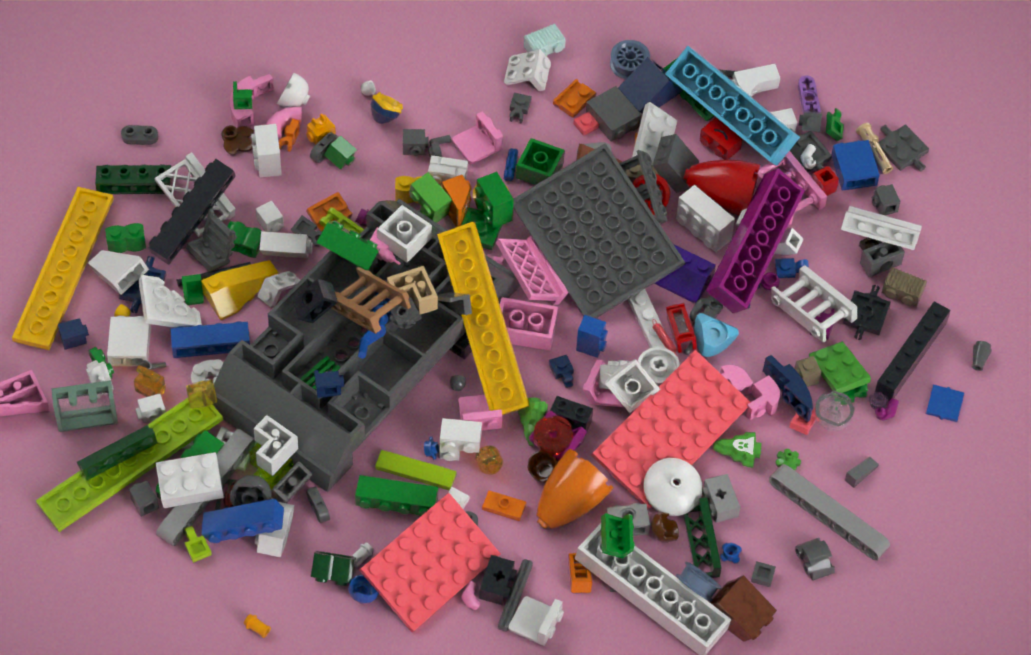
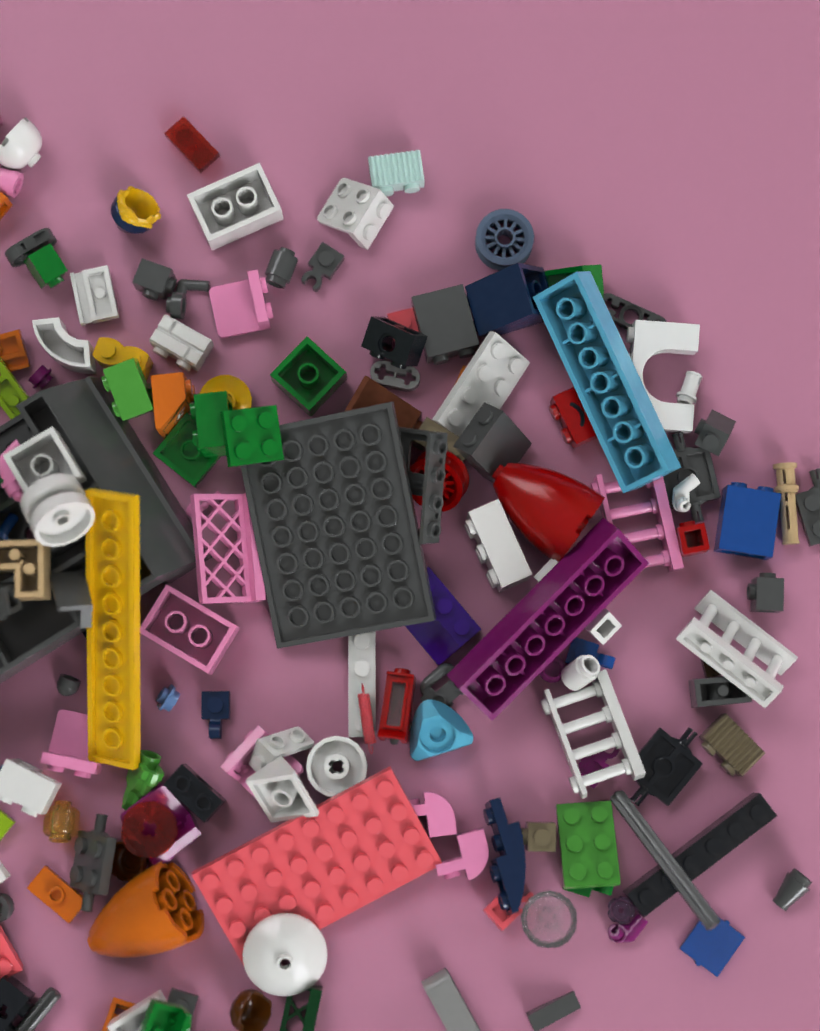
camera: 20 degrees right, 25 degrees up
(319, 128) = (33, 217): light orange brick -> none
(368, 88) = (132, 168): white hinge -> none
(370, 191) = (63, 348): none -> white brick
(378, 162) = (94, 295): none -> white plate
(405, 63) = (192, 144): none -> clear red plate
(427, 244) = (57, 510): none -> white wheel
(450, 86) = (235, 206): none -> white brick
(494, 110) = (281, 267): none -> dark grey brick
(510, 164) = (273, 358): blue axle -> none
(522, 472) = (93, 862): none -> dark grey plate
(524, 190) = (252, 435): none -> green plate
(528, 369) = (167, 698): none -> medium blue plate
(574, 98) = (403, 276): orange plate -> none
(577, 125) = (408, 342): none -> black brick
(591, 336) = (267, 684): blue brick -> none
(639, 513) = (191, 985): light grey brick -> none
(721, 498) = (348, 1007): light grey brick -> none
(740, 448) = (403, 921): bright green rock -> none
(784, 102) = (689, 388): none -> white pin
(788, 458) = (461, 951): bright green plant -> none
(789, 271) = (580, 672): none -> white brick
(812, 91) = (741, 370): medium lavender beam -> none
(833, 125) = (745, 446): green plate -> none
(891, 351) = (665, 860): none -> dark grey axle

